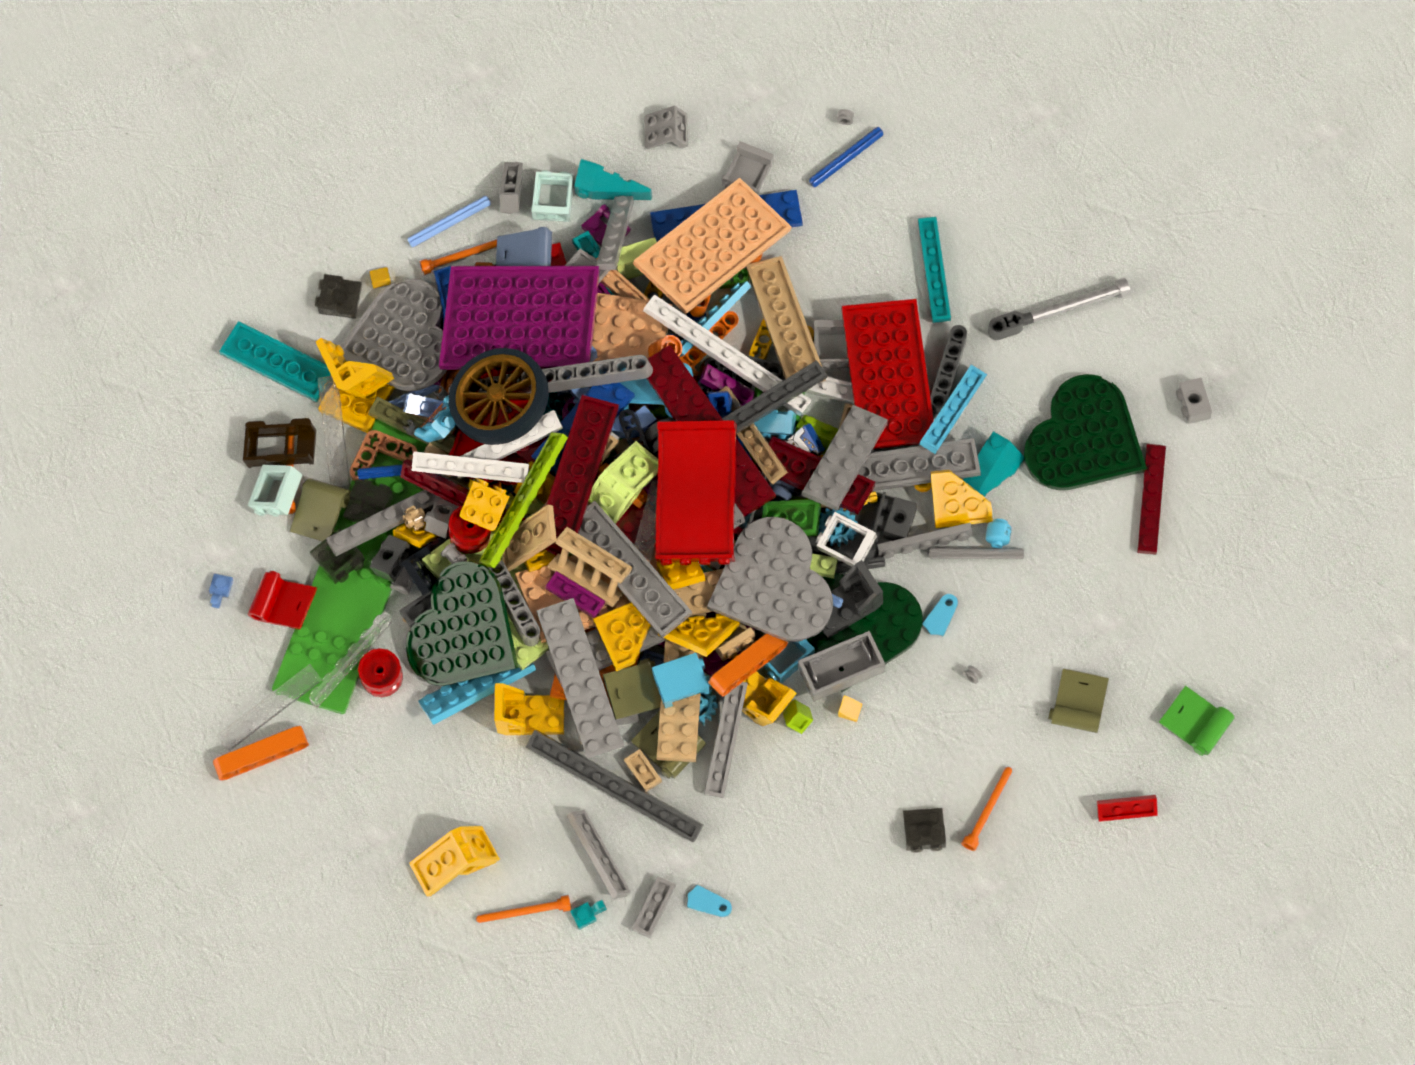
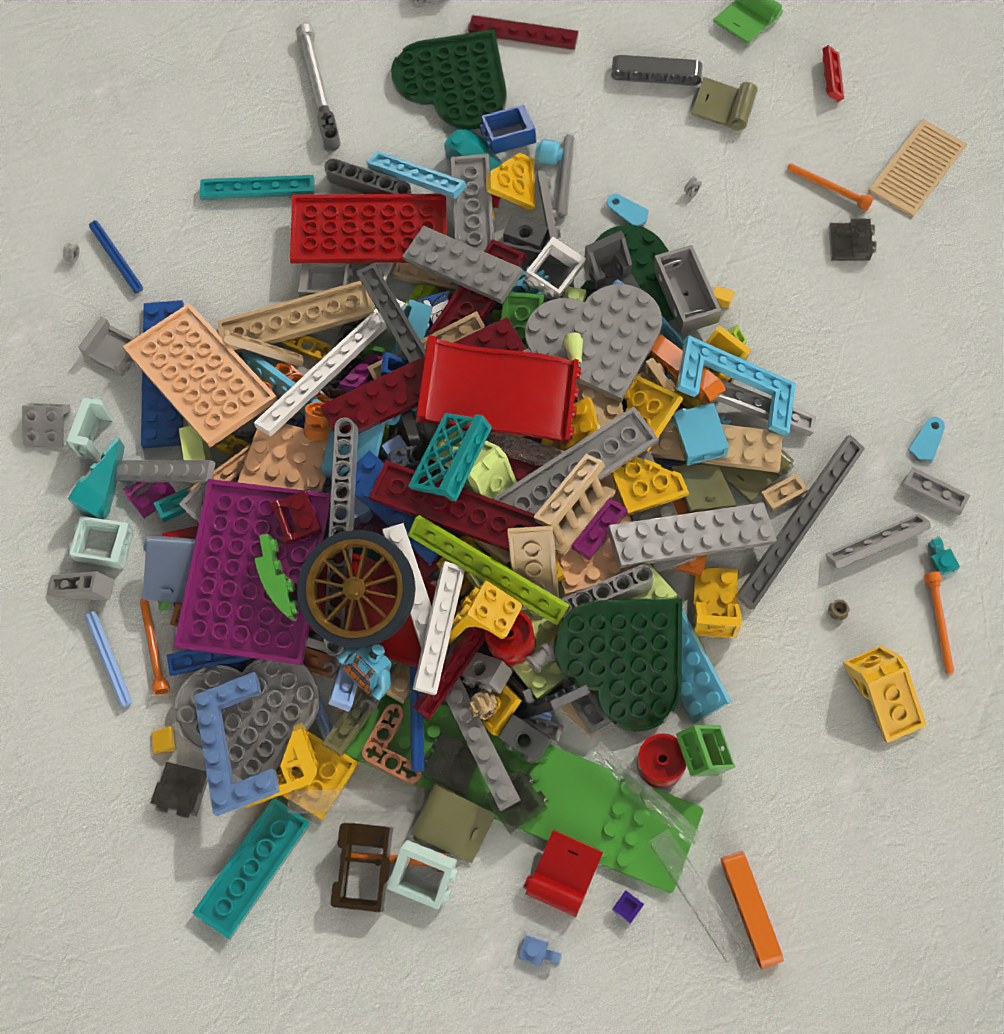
camera: 85 degrees left, 0 degrees up
(258, 655) = (628, 907): none -> dark purple plate
(325, 323) = (223, 792): none -> medium blue plate
(381, 690) = (703, 751): none -> bright green window
(511, 327) = (277, 585): none -> bright green slope
(530, 817) = (842, 605): none -> dark tan plate
(566, 345) = (302, 515): none -> dark red plate
(618, 462) = (463, 458): none -> teal fence
(657, 162) = (85, 427): none -> light aqua panel
(742, 755) = (698, 353): none -> medium azure plate
(748, 297) = (263, 348): none -> tan tile
(751, 556) = (573, 345): none -> yellowish green cone
(1021, 897) = (917, 167): none -> tan window
(1027, 509) = (504, 119): none -> blue window
(1113, 632) = (656, 70): none -> dark grey beam

